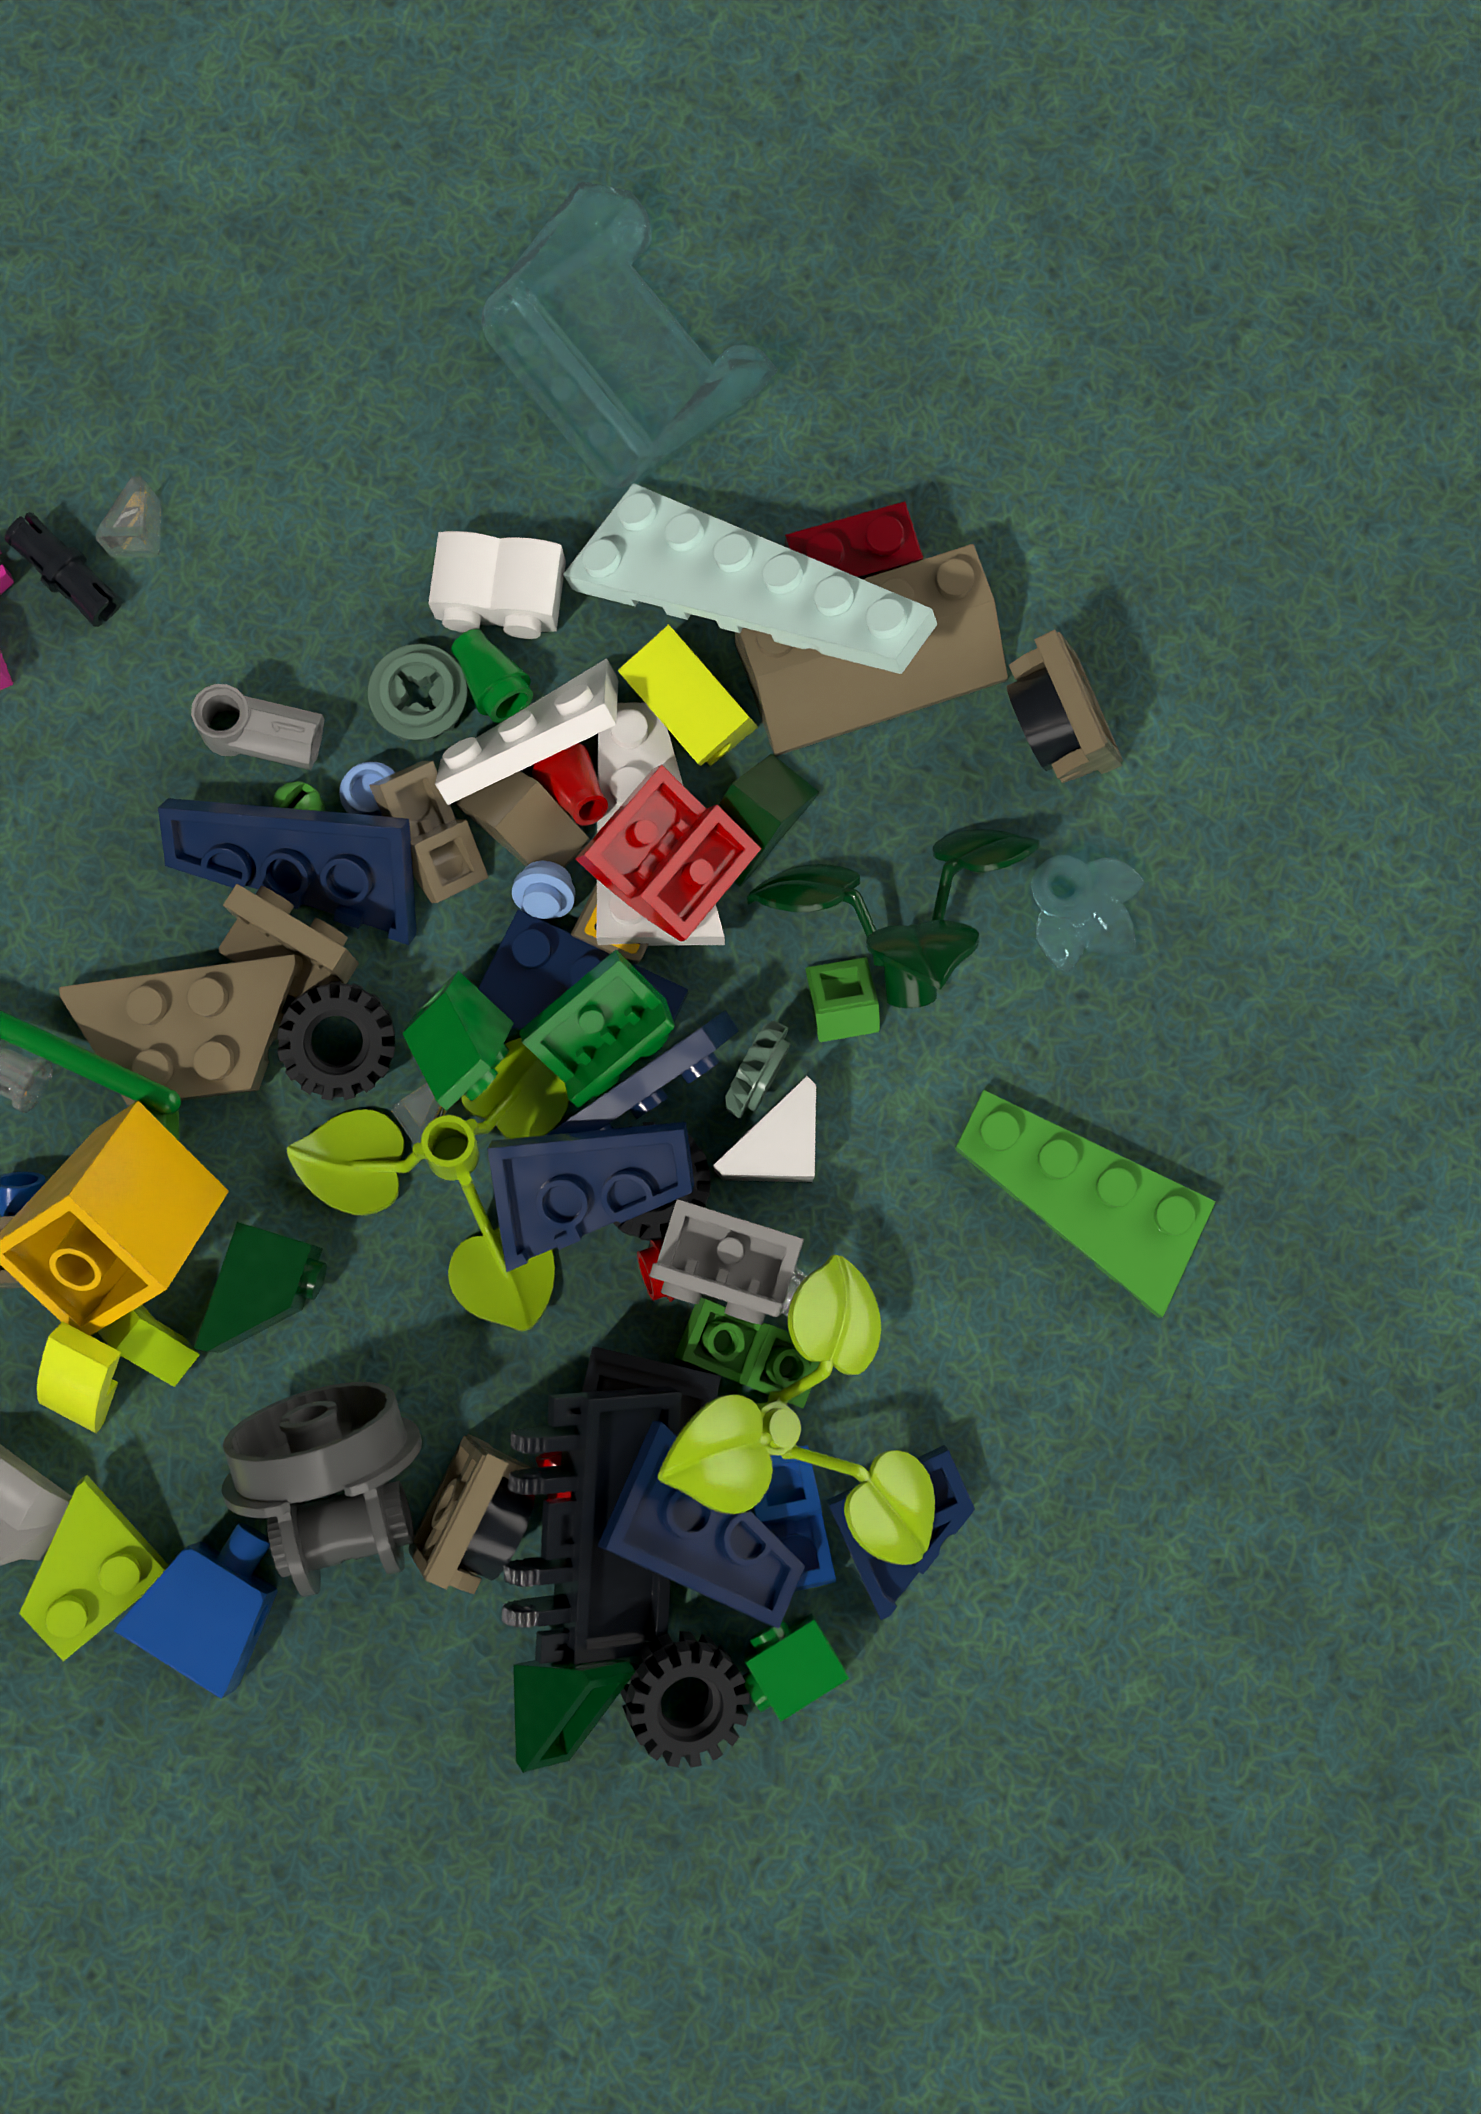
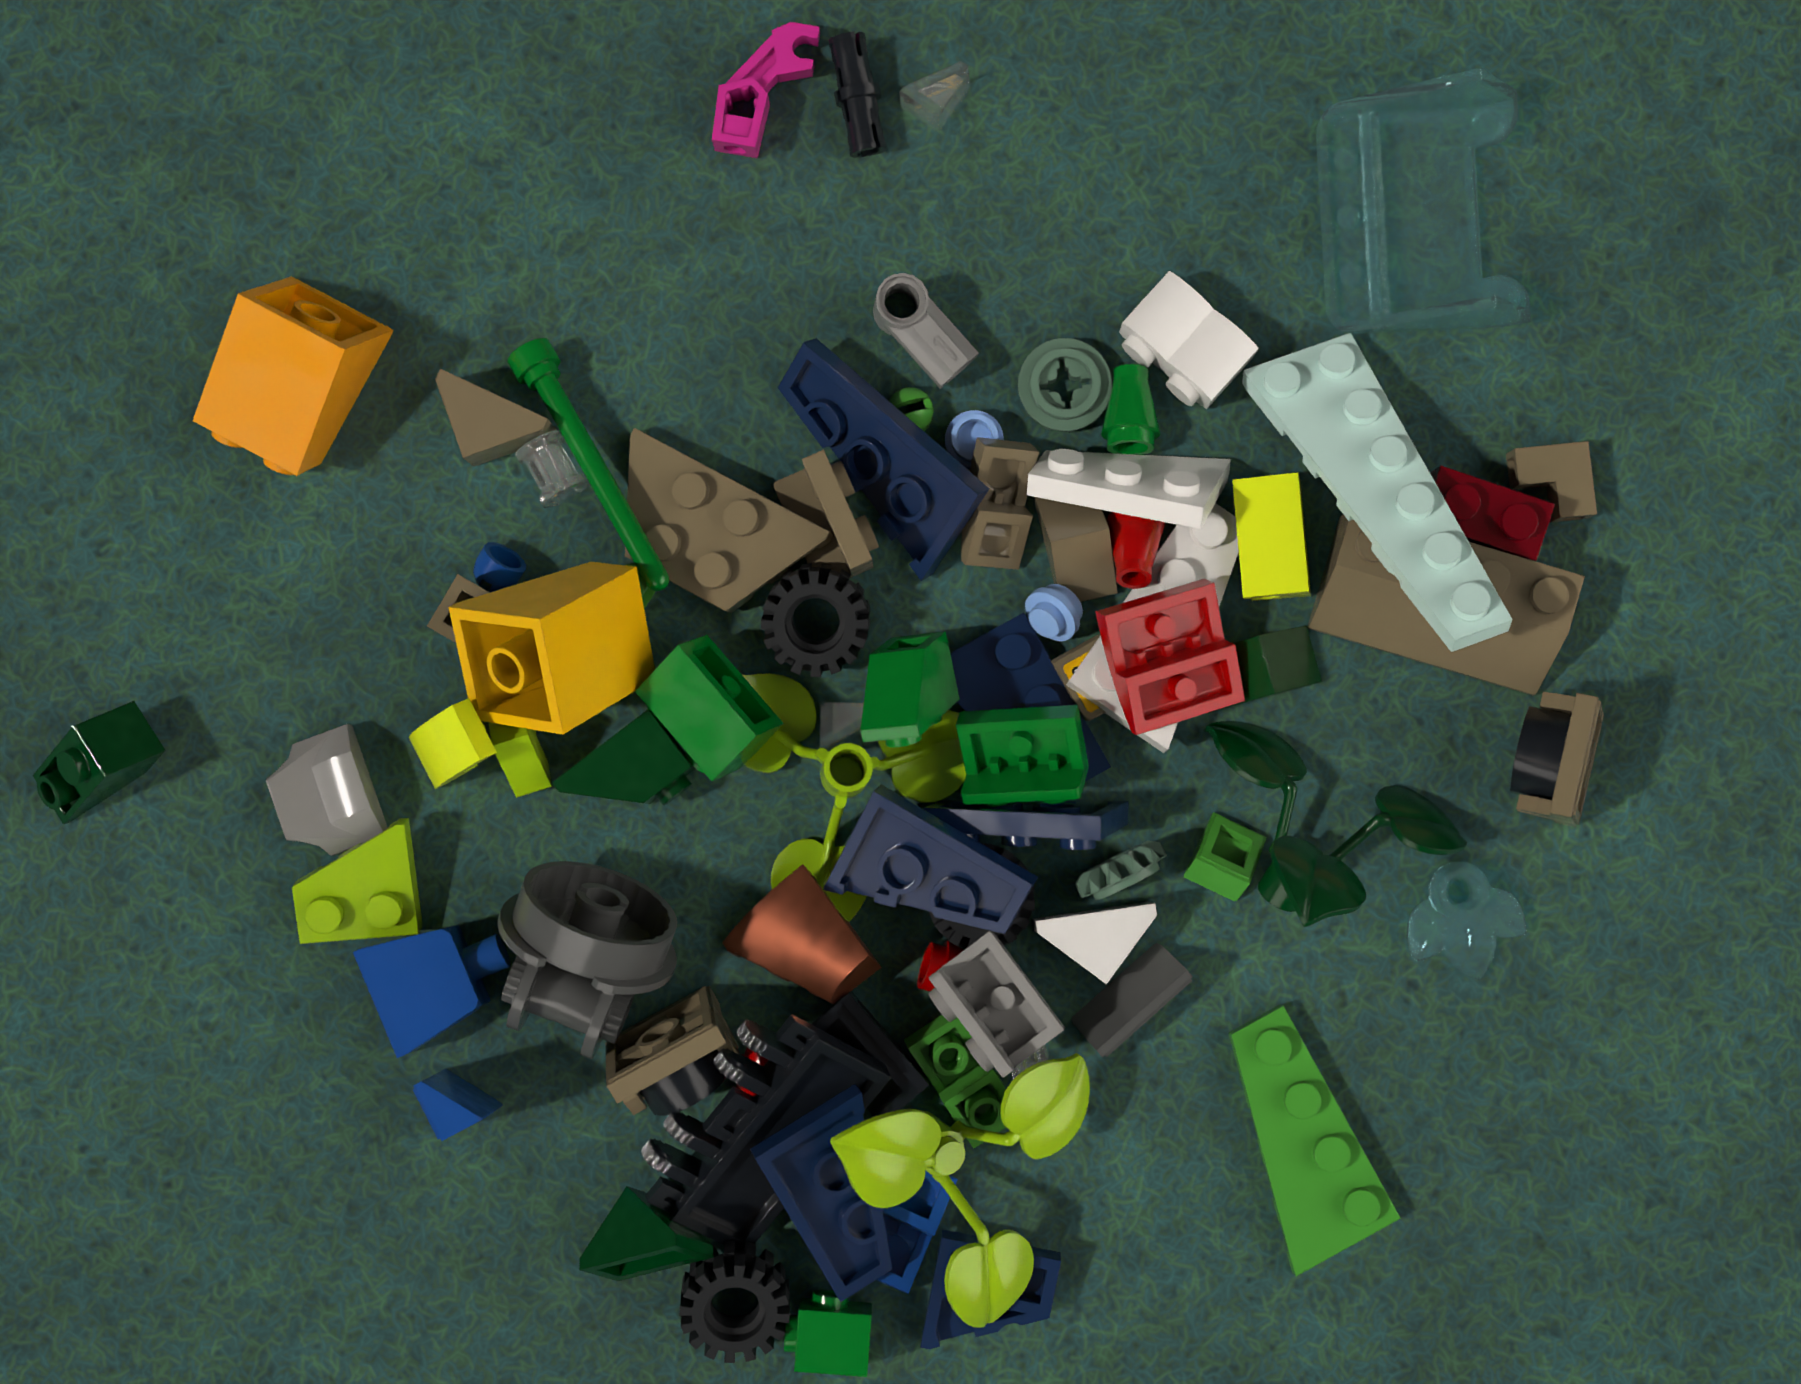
camera: 40 degrees right, 5 degrees up
(292, 1183) = (708, 707): none -> green brick
(300, 1705) = (452, 1103): none -> blue slope
(520, 1329) = (803, 939): none -> copper slope
(848, 1178) = (1131, 999): none -> dark grey slope
(894, 476) = (1565, 473): none -> dark tan piece

